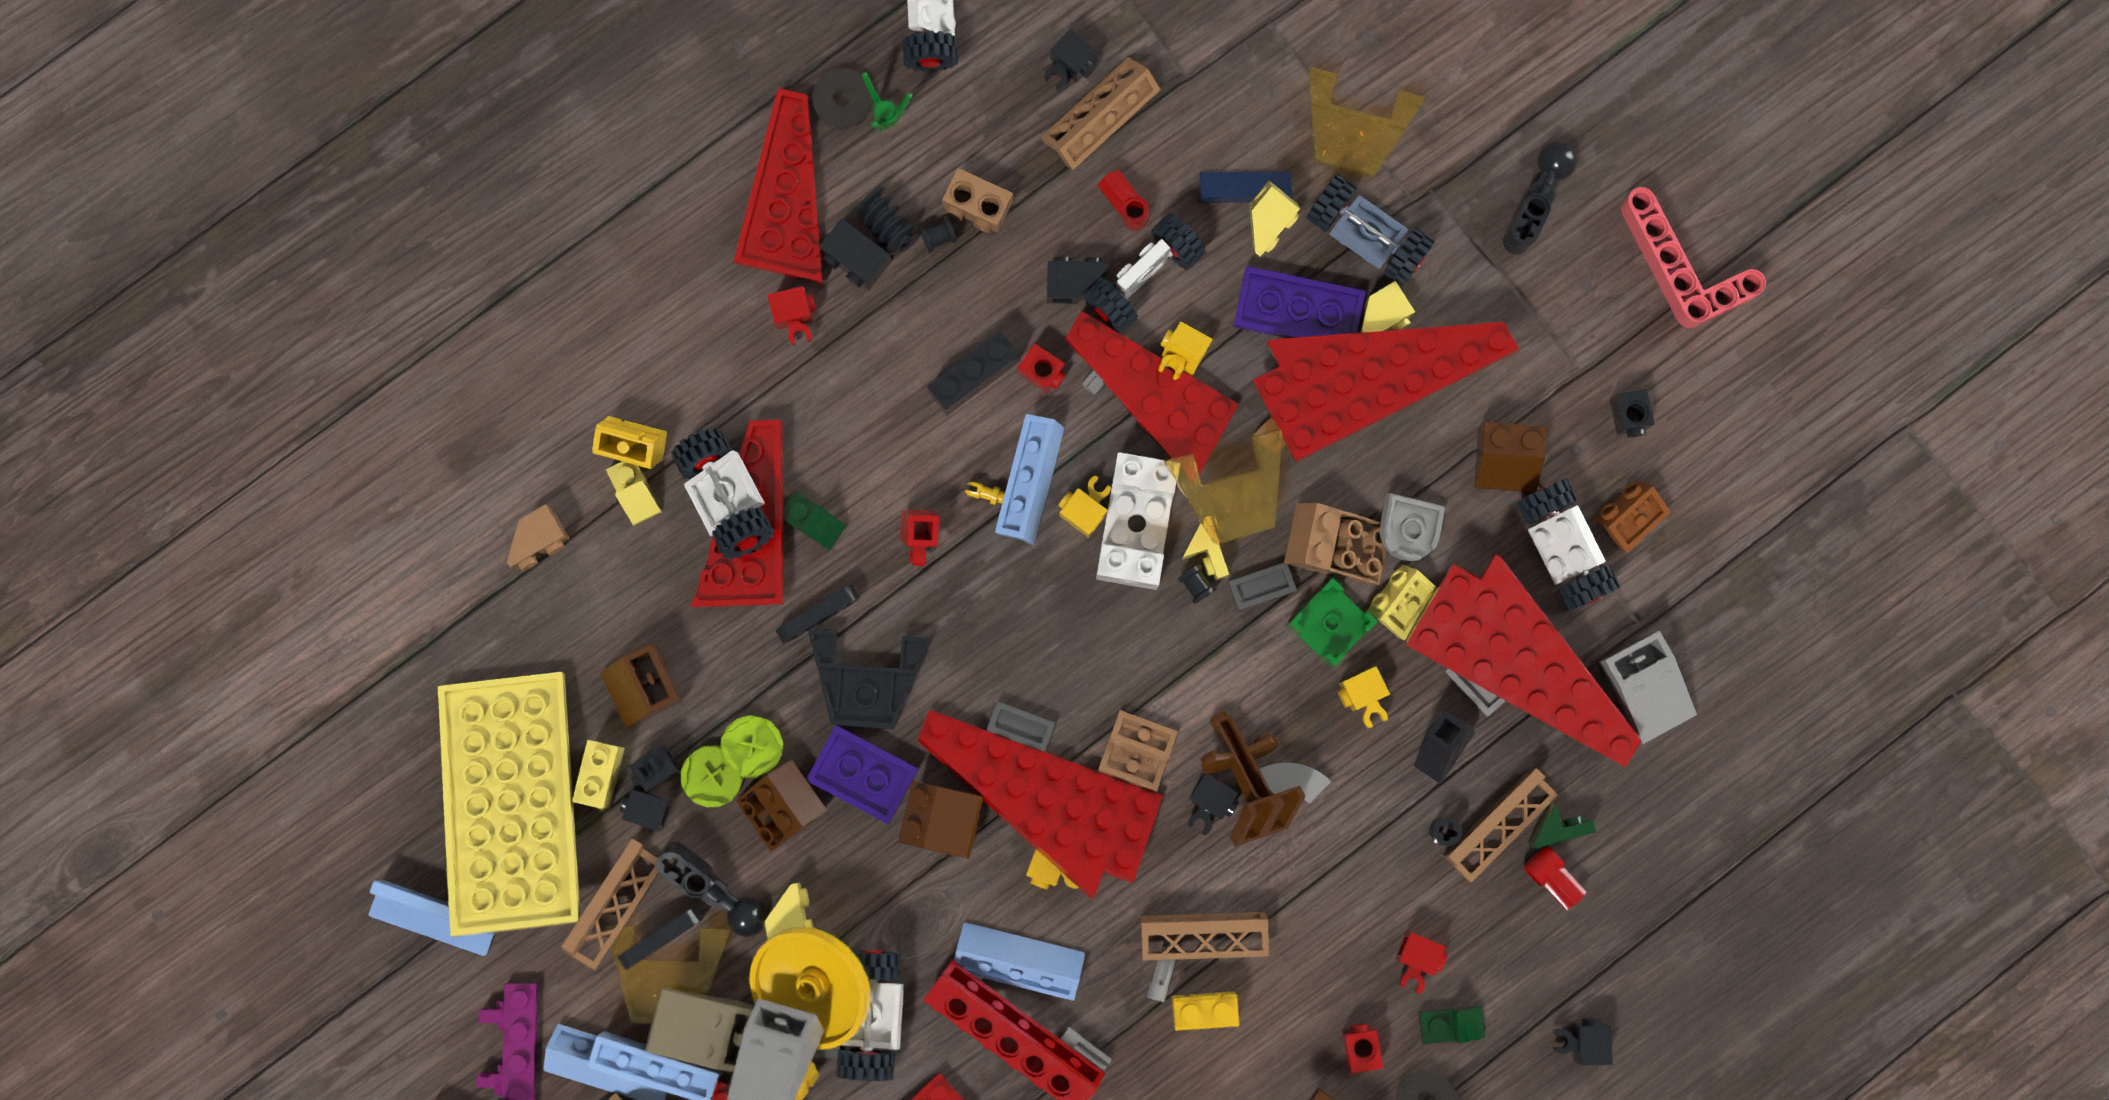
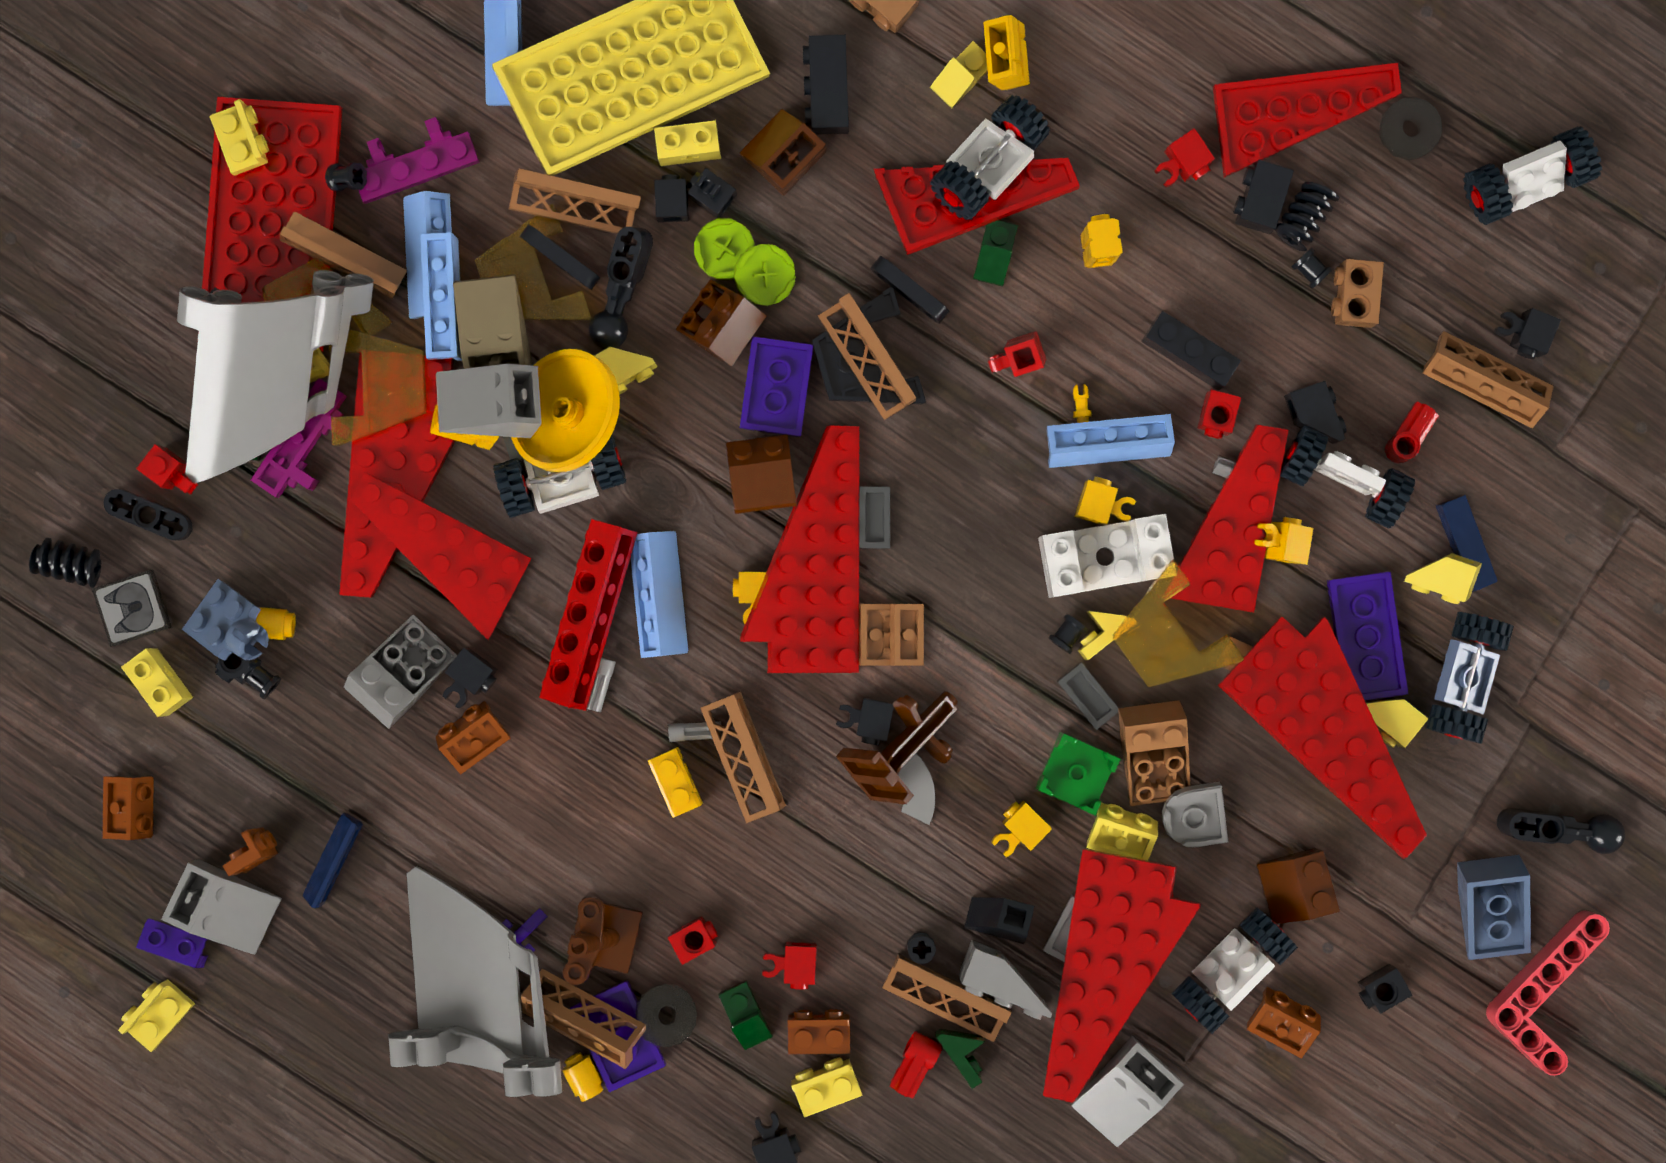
camera: 75 degrees right, 5 degrees up
(593, 621) = (826, 84): none -> black brick
(840, 419) = (1101, 241): none -> yellow brick
(863, 666) = (877, 351): none -> medium nougat fence
(885, 111) = (1413, 173): green plant -> none
(1354, 138) = (1553, 629): clear yellow wing -> none
(1493, 959) = (819, 1032): none -> dark orange bracket
(1494, 772) = (992, 973): none -> light grey slope
(1546, 971) = (826, 1086): none -> light yellow bracket
(1590, 283) = (1495, 906): none -> sand blue slope

